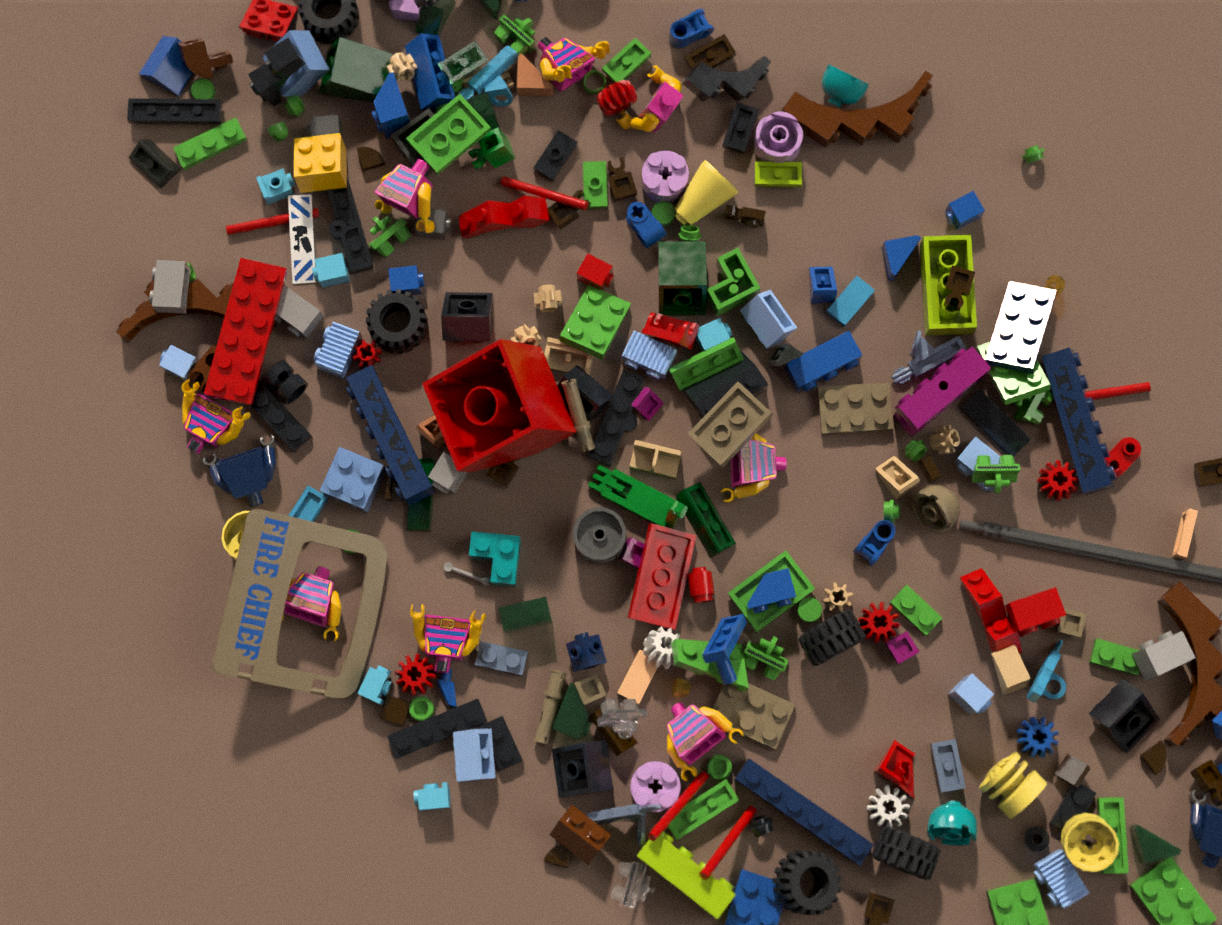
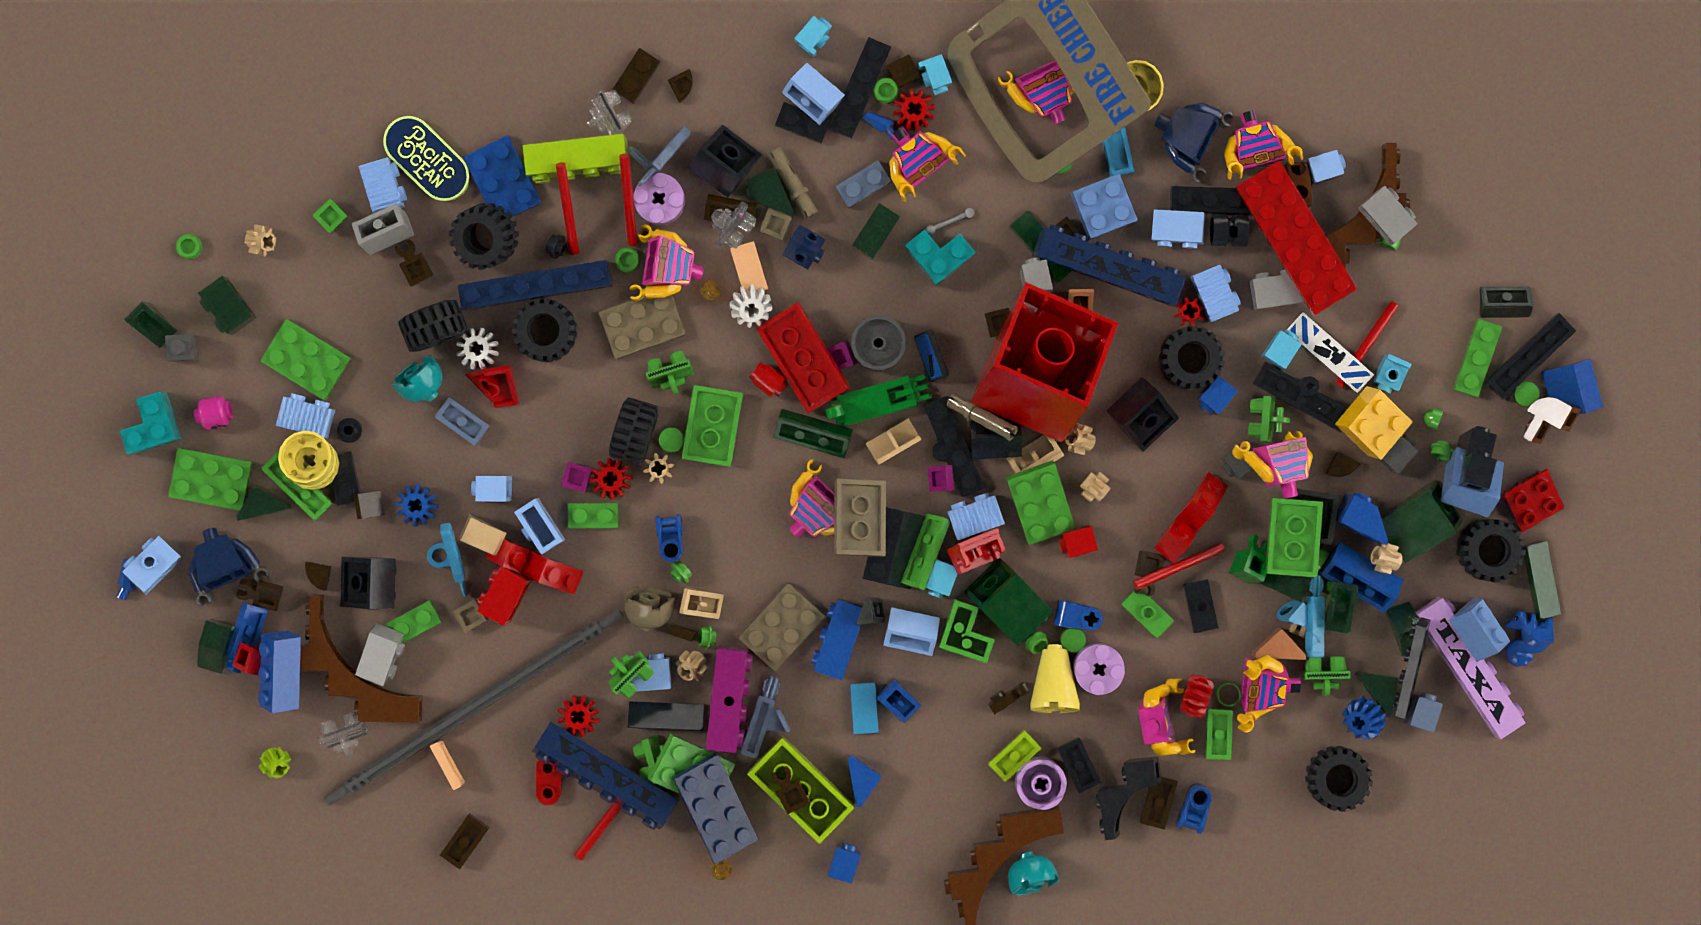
camera: 135 degrees right, 10 degrees up
(317, 416) = (1178, 228): none -> light blue brick
(571, 493) = (931, 355): none -> slope
(580, 834) = (680, 111): reddish brown brick -> none
(585, 893) = (636, 75): none -> dark brown plate
(621, 183) = (1127, 632): dark brown plate -> none
(688, 655) = (705, 332): bright green wing -> none
(703, 809) = (609, 218): bright green plate -> none
(722, 645) = (708, 349): blue piece -> none
(772, 589) = (711, 425): blue slope -> none
(848, 767) = (523, 325): none -> black tyre
(962, 636) = (539, 526): none -> light blue brick
(1015, 788) = (398, 450): light yellow wheel -> none

